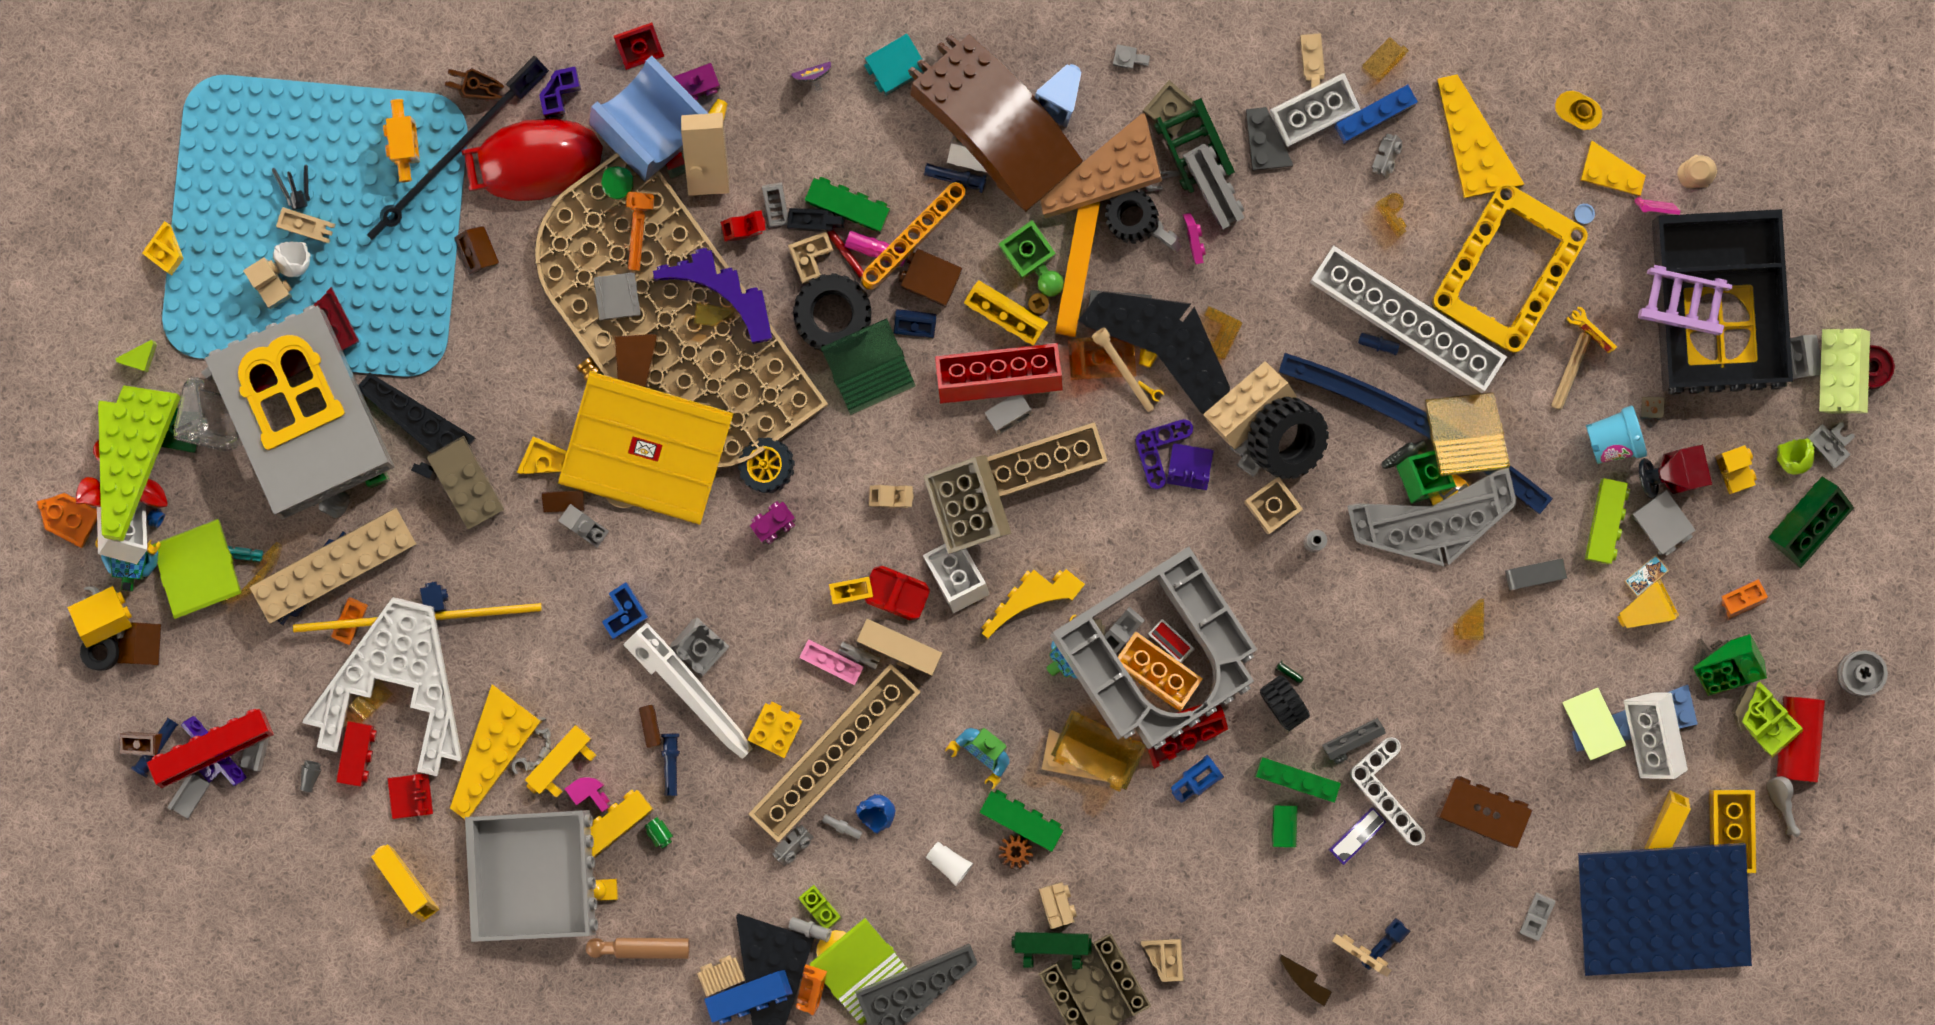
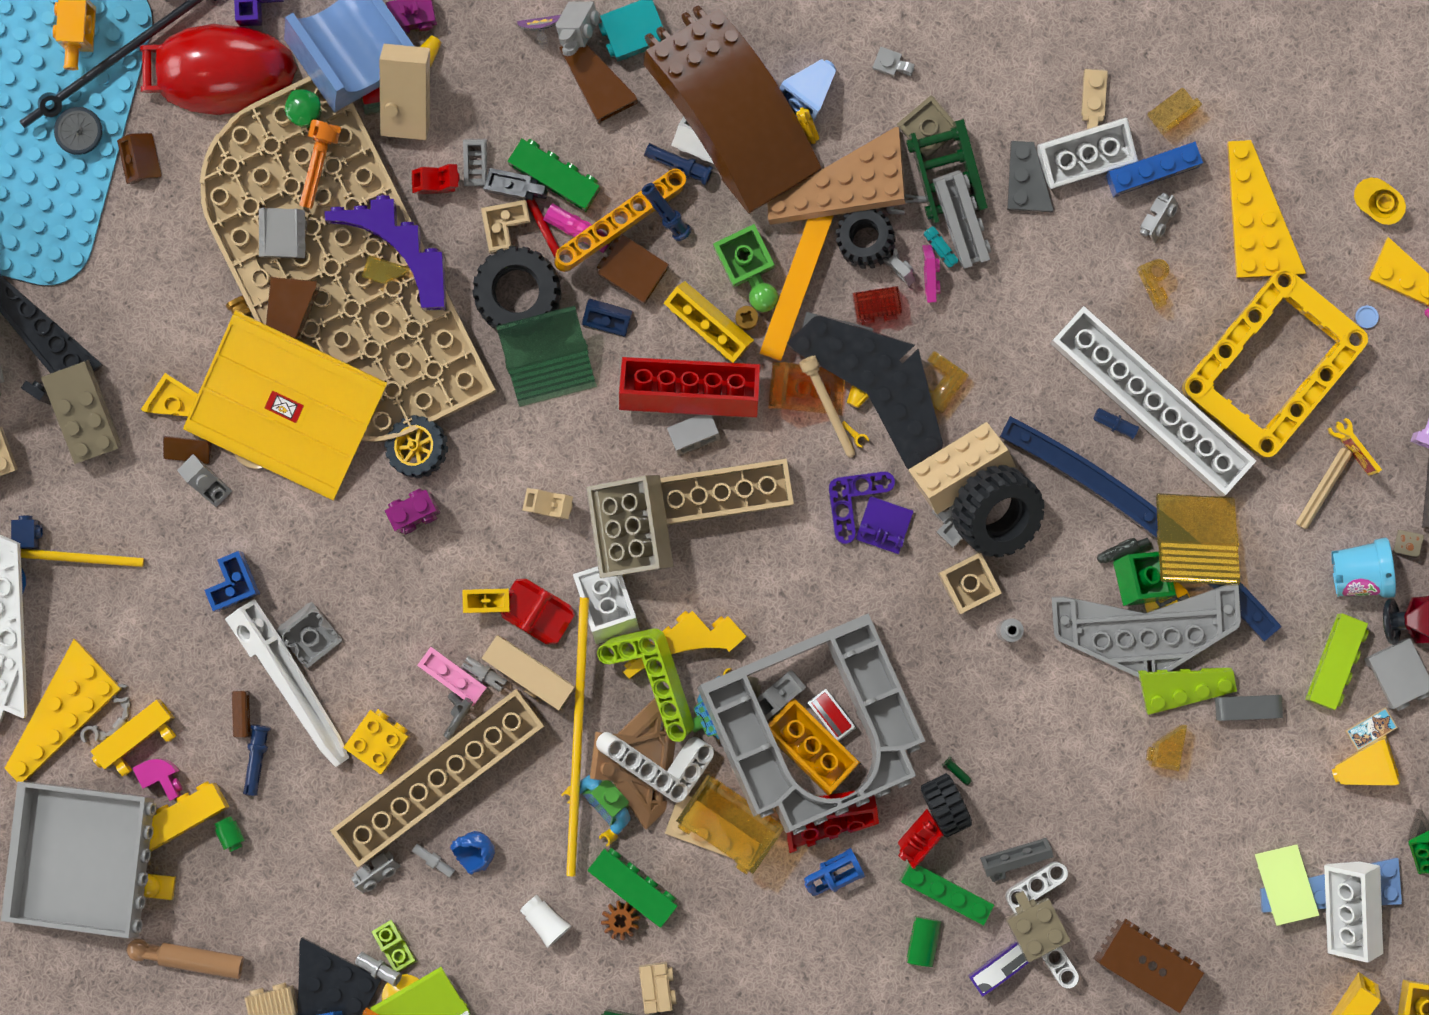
camera: 15 degrees right, 0 degrees up
(419, 234) = (78, 130): none -> dark grey wheel
(842, 693) = (458, 712): none -> dark grey hose
(846, 70) = (576, 25): none -> light grey hinge
(872, 117) = (599, 84): none -> reddish brown slope
(951, 696) = (577, 736): none -> yellow piece
(957, 226) = (670, 218): none -> dark blue pin
(1009, 706) = (645, 736): none -> medium nougat plate
(1012, 631) = (656, 675): none -> lime beam
(1043, 722) = (674, 782): none -> white beam
(1064, 124) = (807, 125): none -> yellow axle
(1151, 274) = (877, 305): none -> clear red brick
(1199, 213) = (941, 247): none -> teal axle
(1266, 736) = (919, 839): none -> red hinge
(1380, 795) = (1036, 927): none -> dark tan hinge
(1466, 569) = (1174, 689): none -> lime wing

